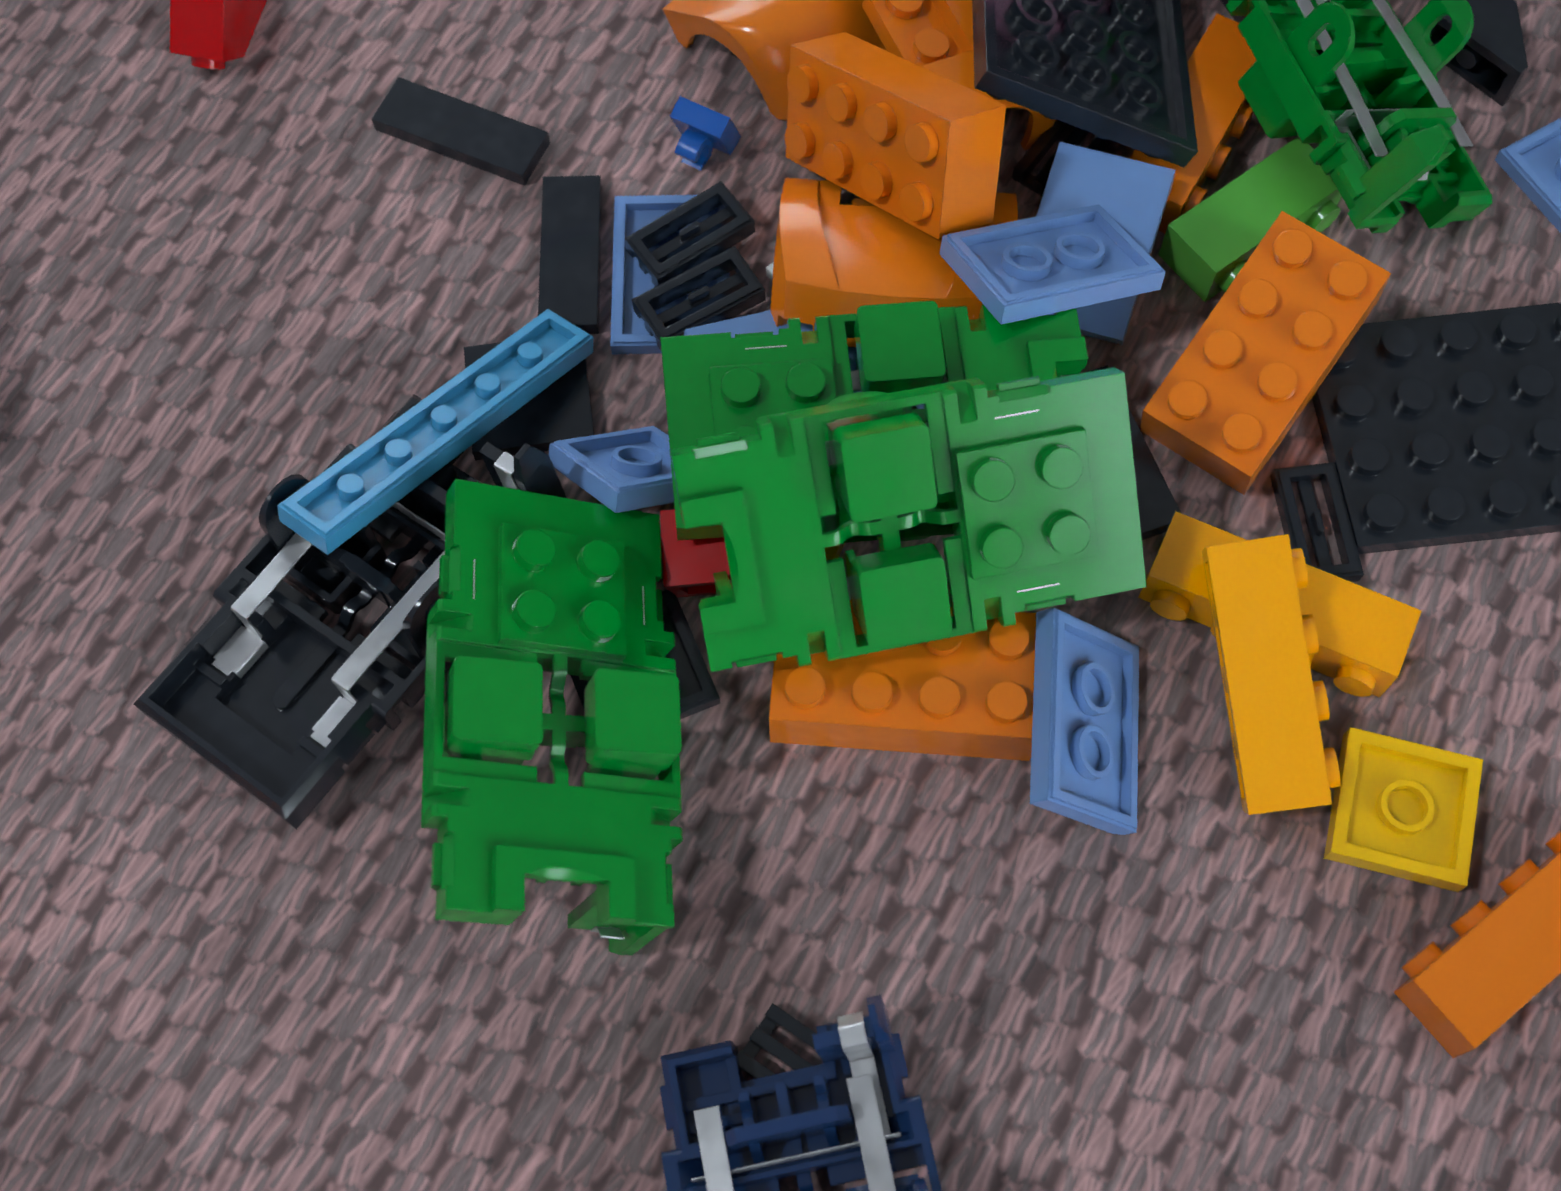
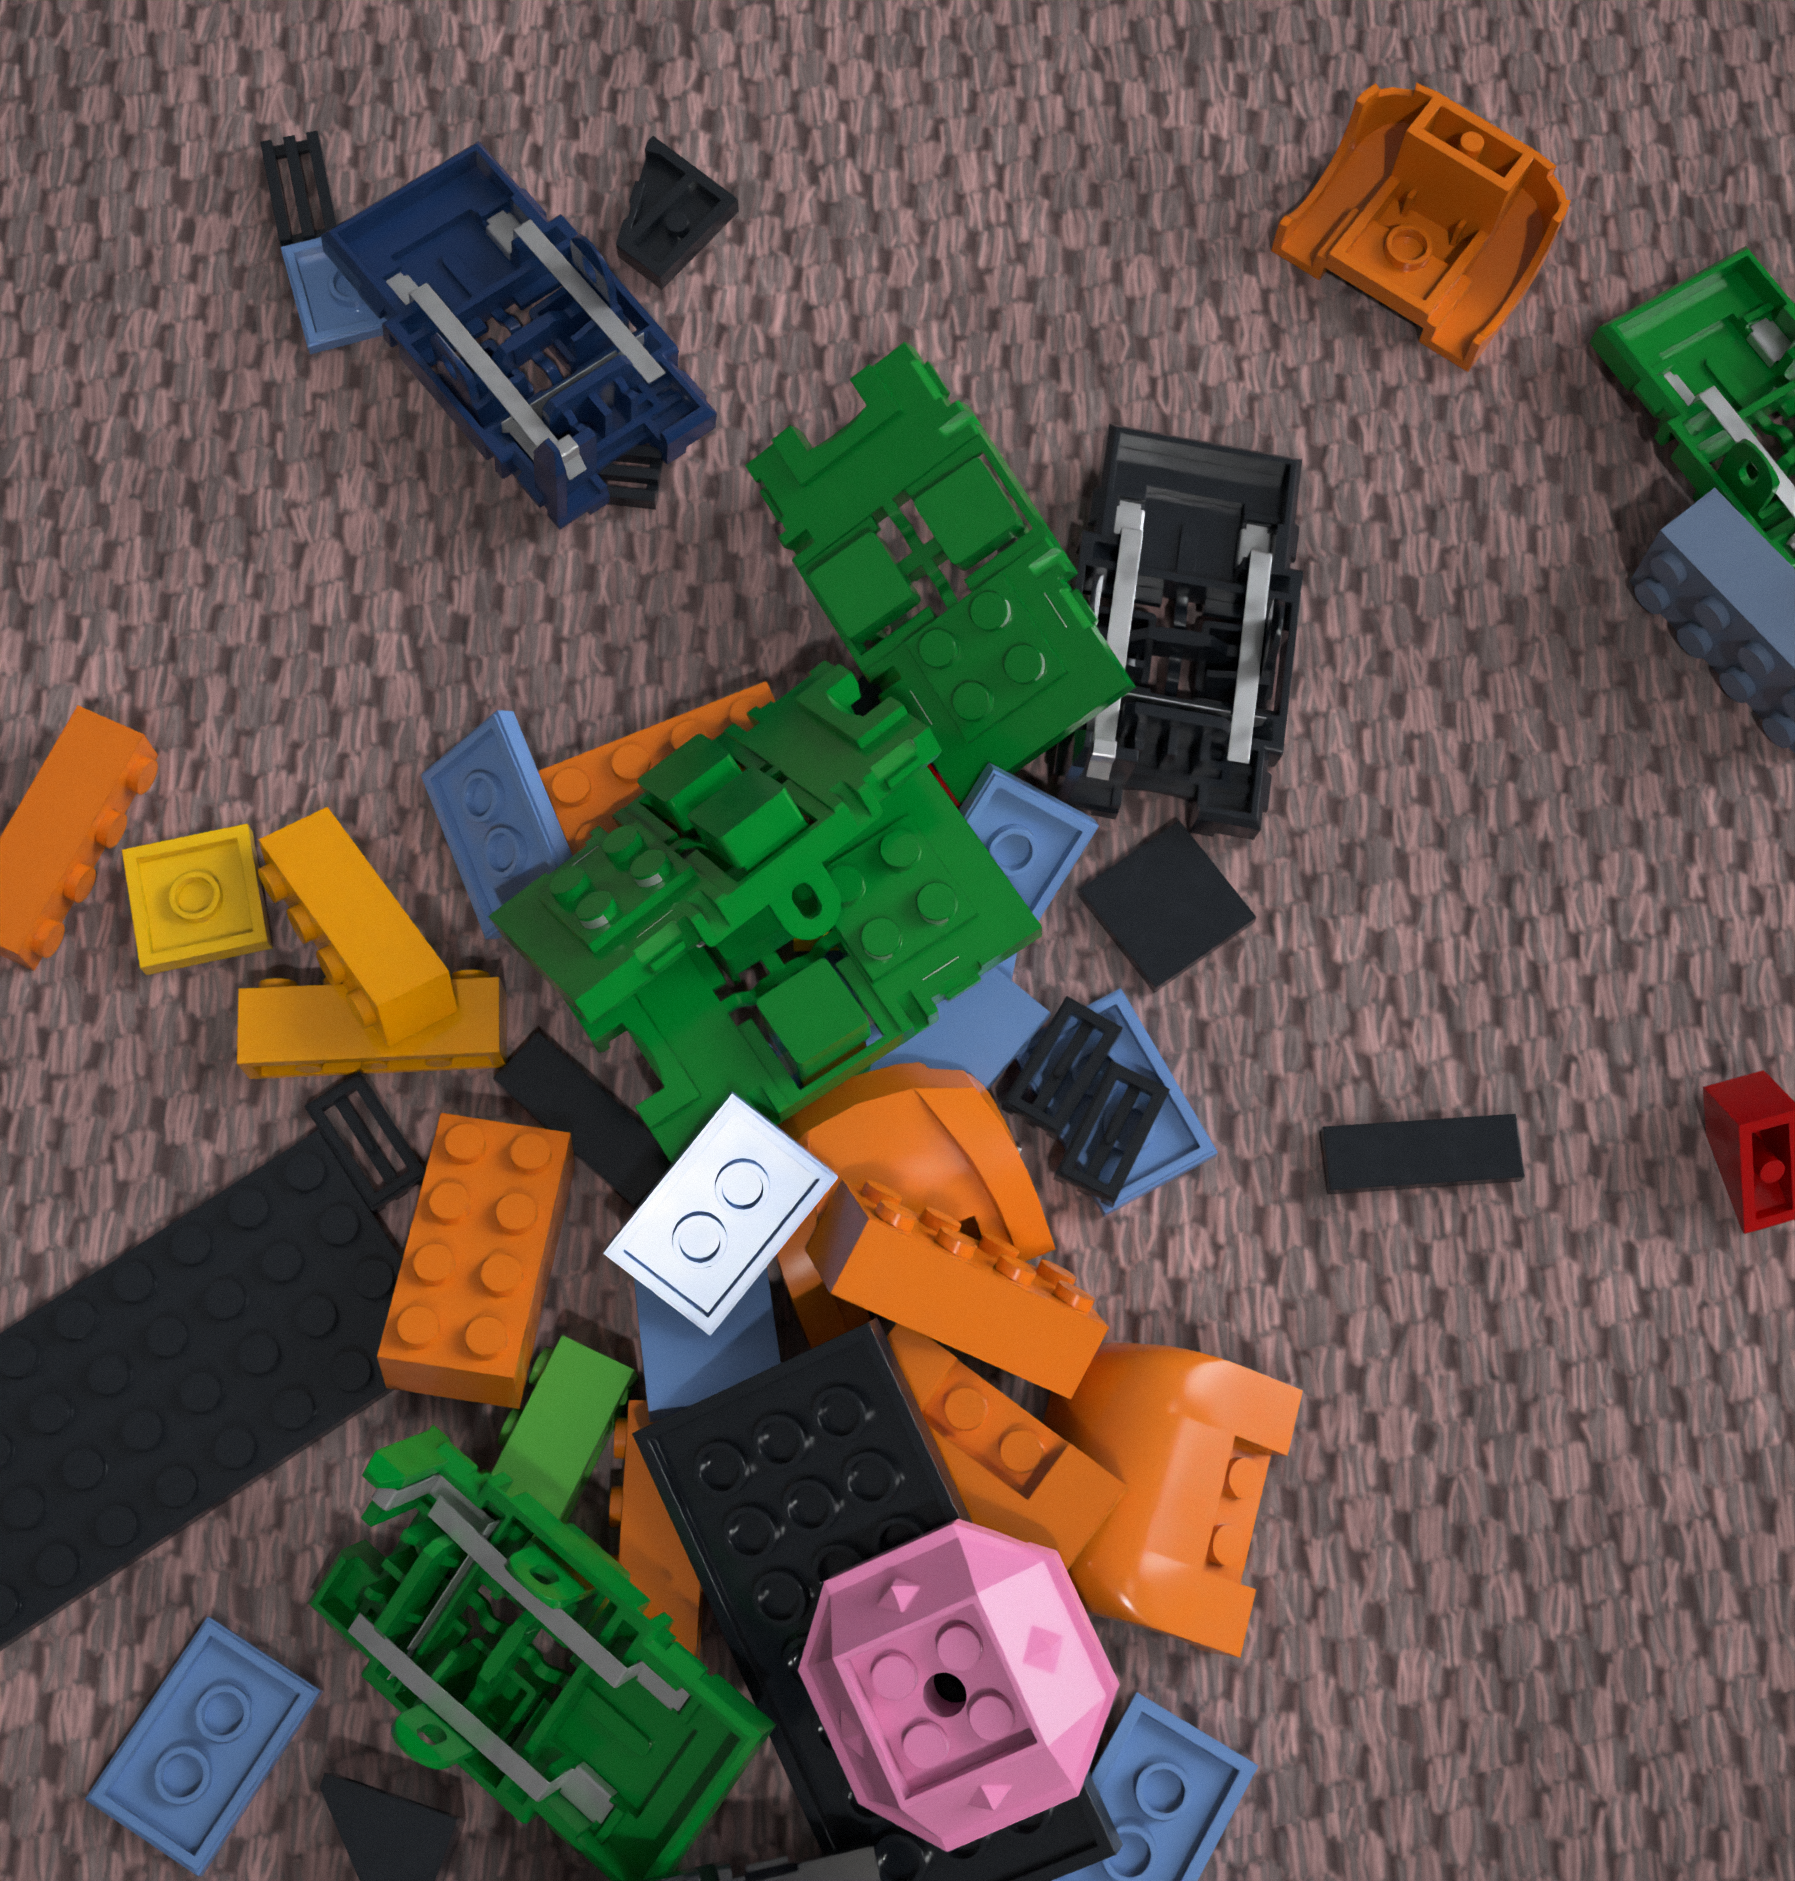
camera: 150 degrees right, 5 degrees up
(434, 432) = (1197, 782): dark azure tile -> none
(571, 249) = (1222, 1071): black tile -> none
(701, 132) = (1171, 1267): blue tile -> none

